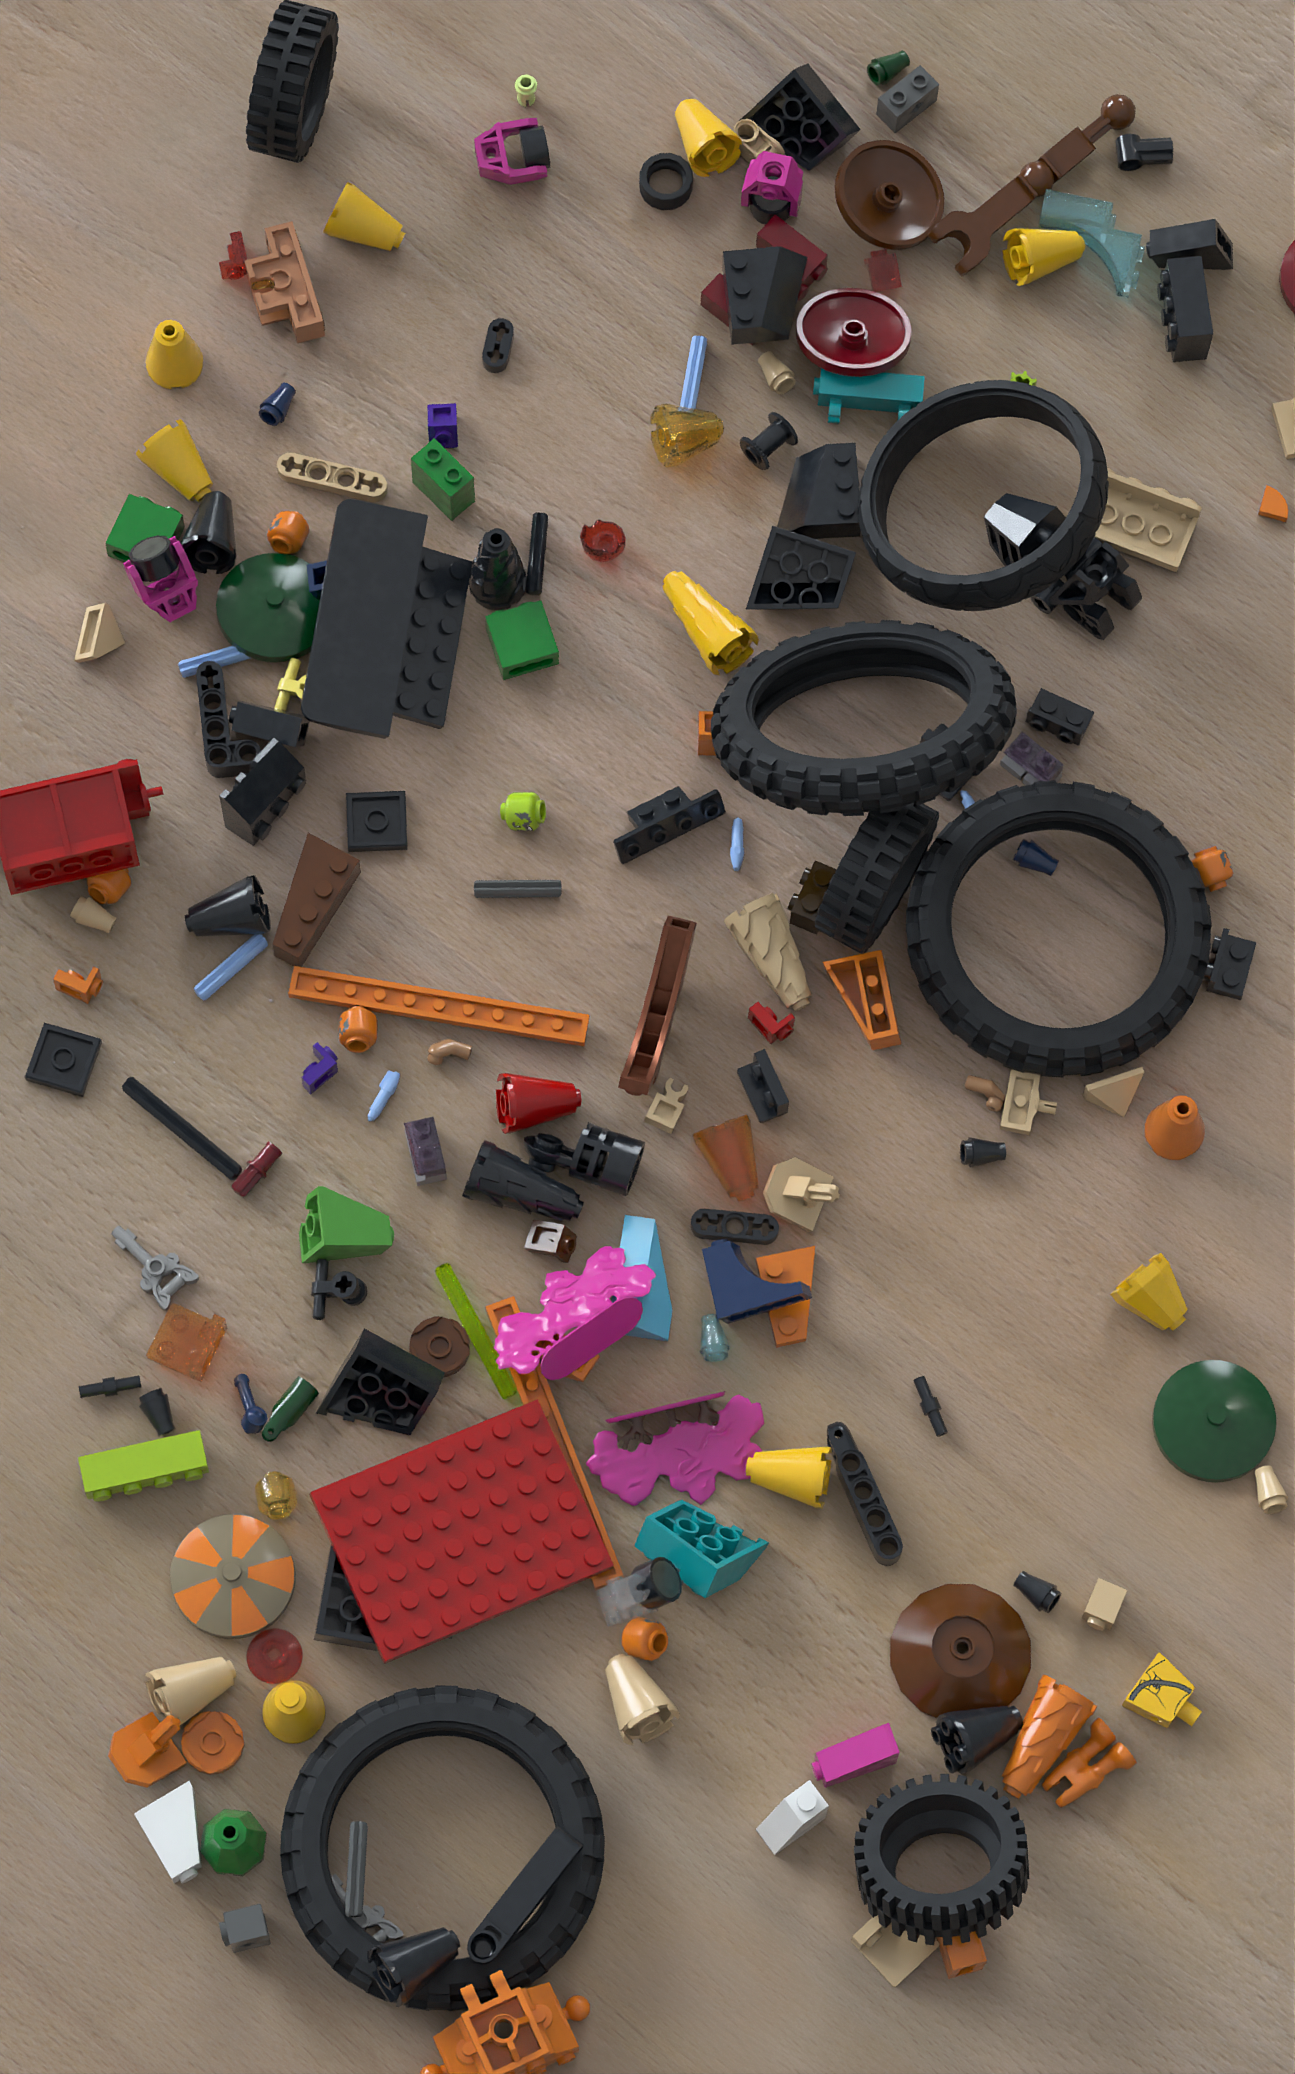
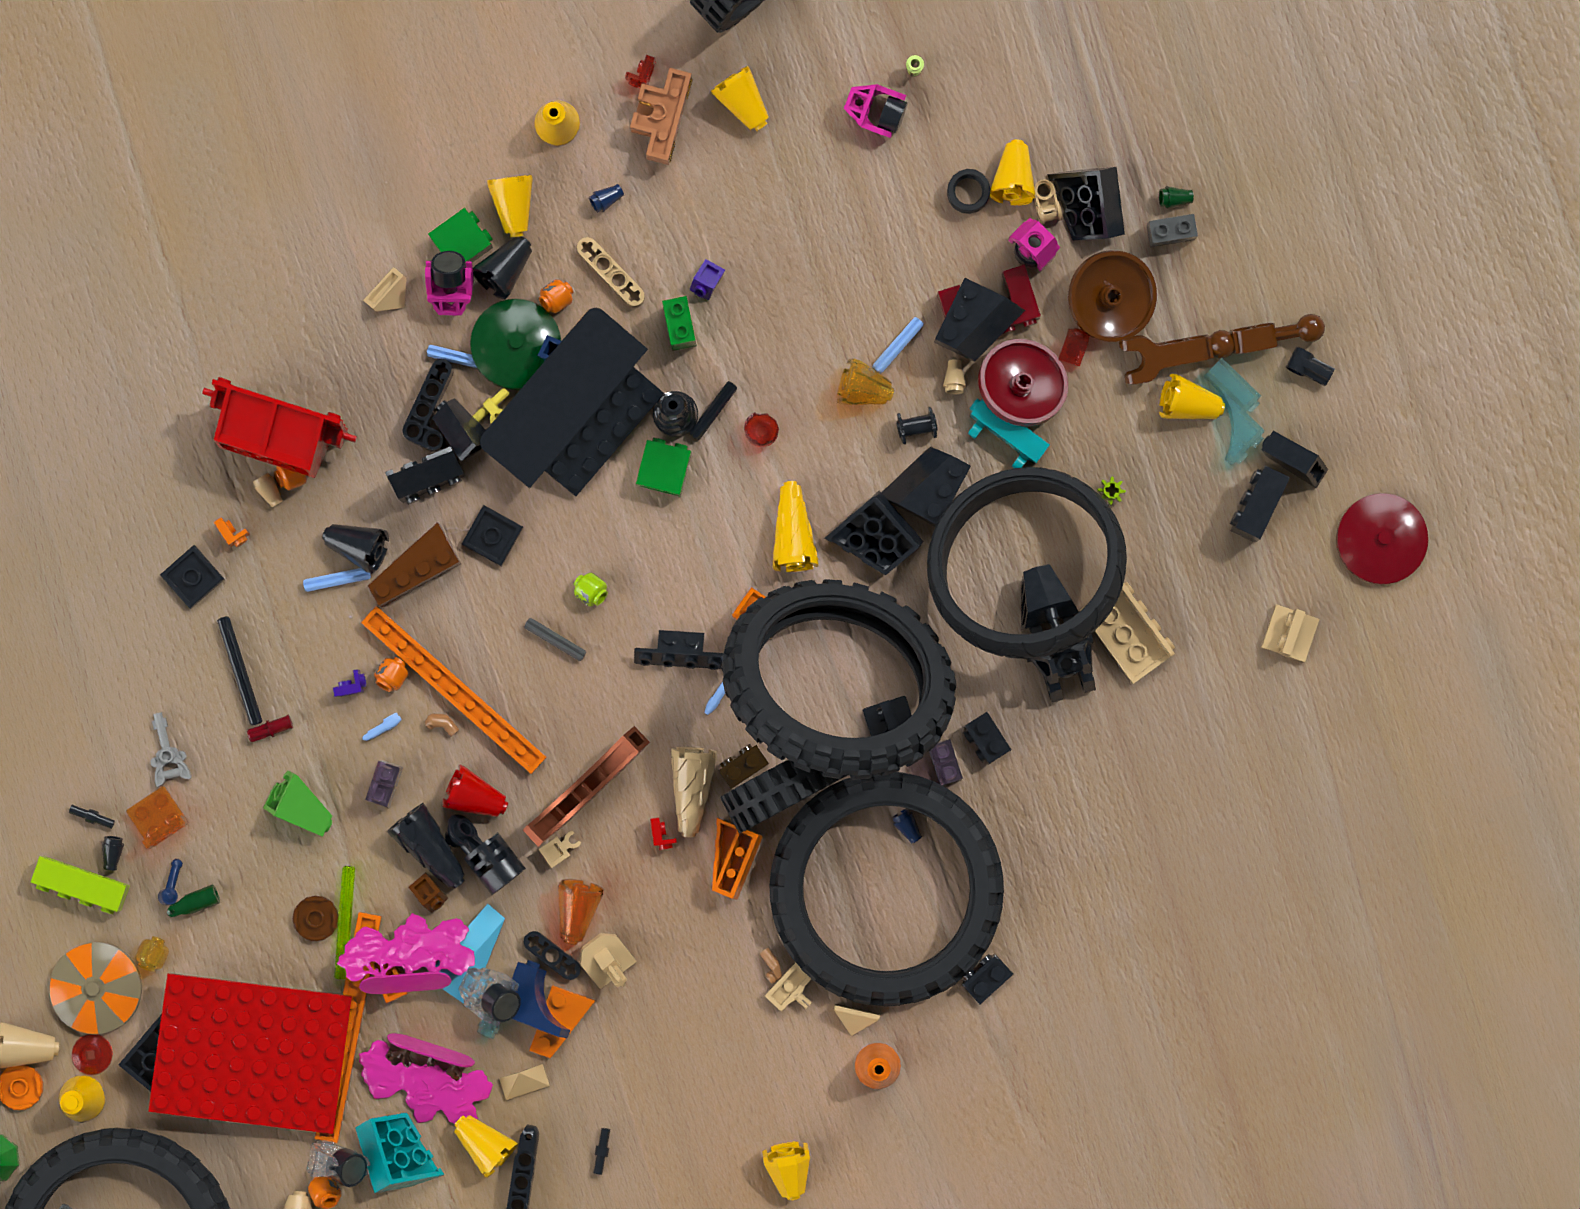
camera: 35 degrees right, 15 degrees up
(343, 1285) = (272, 841): black piece -> none
(382, 1386) = (262, 924): black wedge -> none
(504, 347) = (776, 239): black beam -> none
(696, 1298) = (490, 995): none -> piece
(763, 1088) = (627, 875): black bracket -> none
(792, 1384) = (524, 1082): none -> tan slope
(980, 1152) = (741, 1004): black cone -> none
(1213, 867) = (1017, 906): orange head -> none
(1273, 505) = (1229, 676): orange tile -> none

